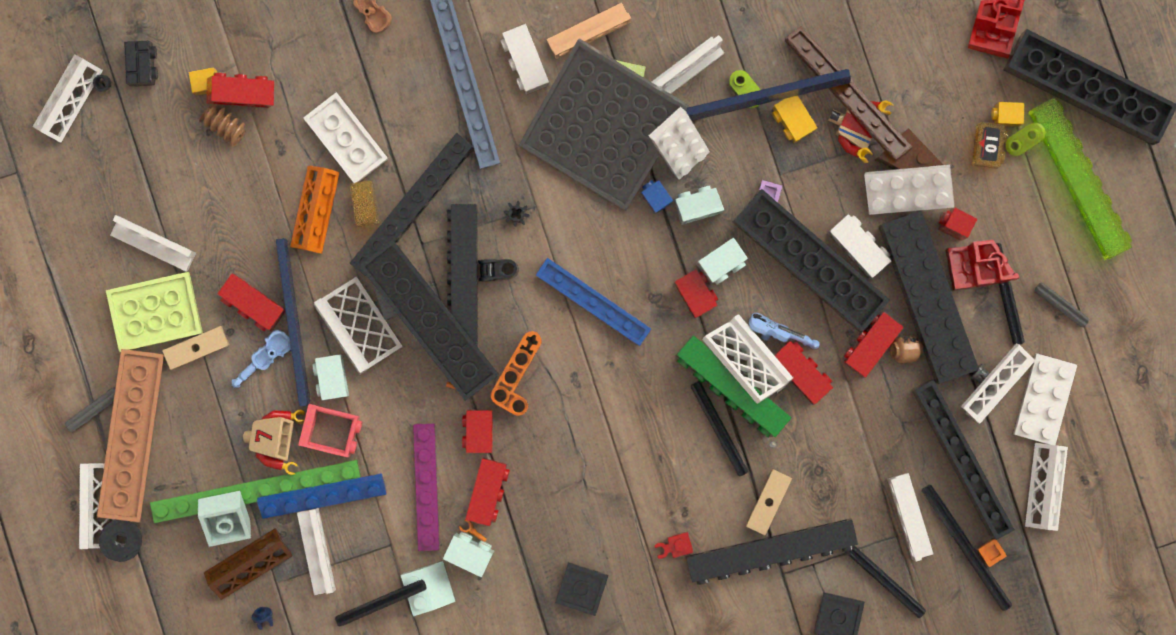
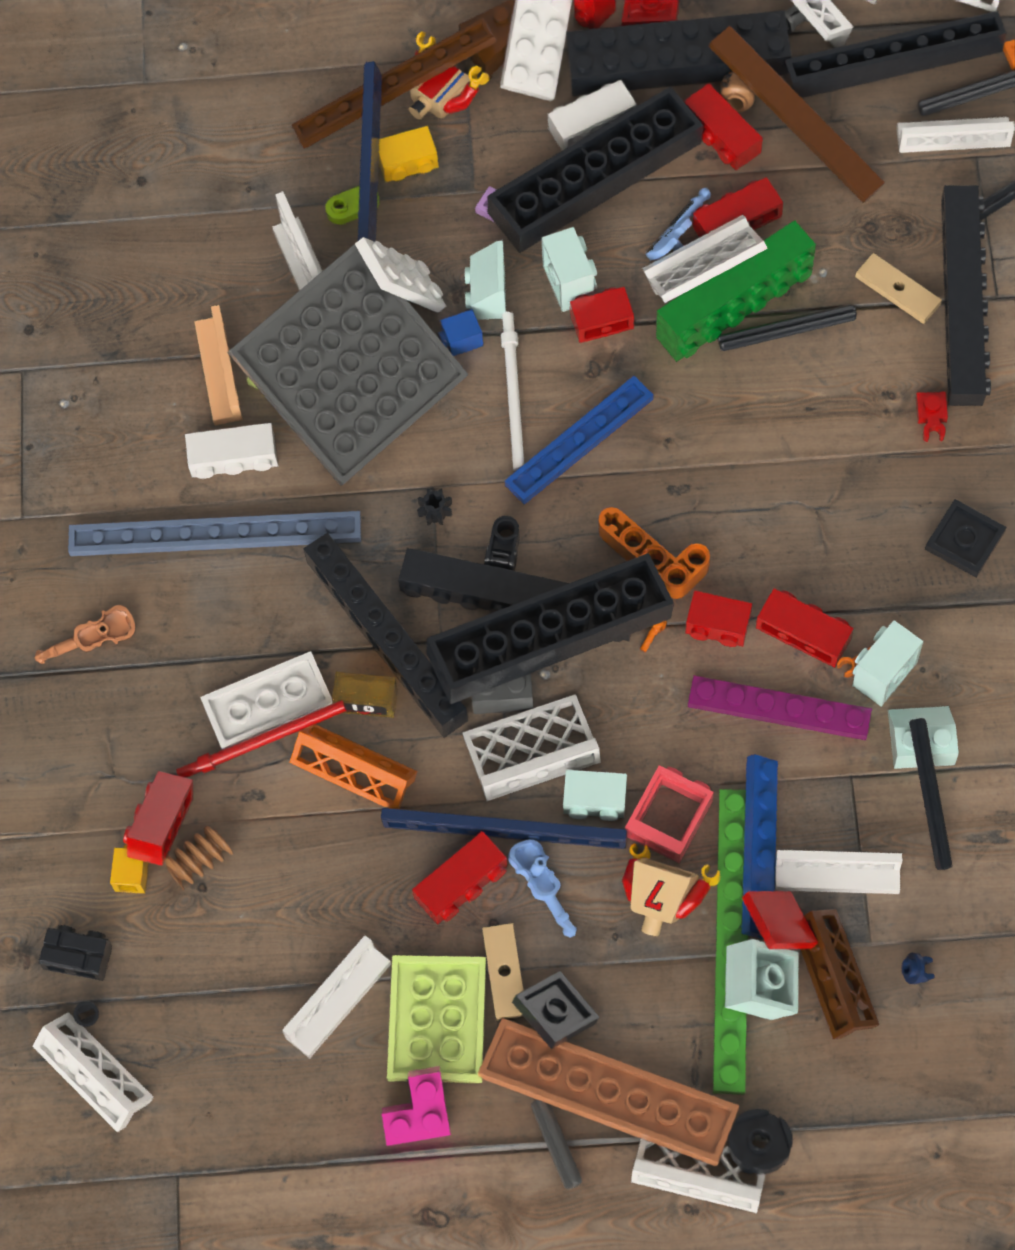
camera: 70 degrees left, 20 degrees down
(85, 319) = (424, 1116): none -> dark pink brick
(175, 388) = (555, 1009): none -> black plate
(266, 521) = (779, 920): none -> red tile
(293, 111) = (207, 762): none -> red bar
(660, 232) = (509, 342): none -> white bar
(892, 397) = (796, 114): none -> reddish brown tile

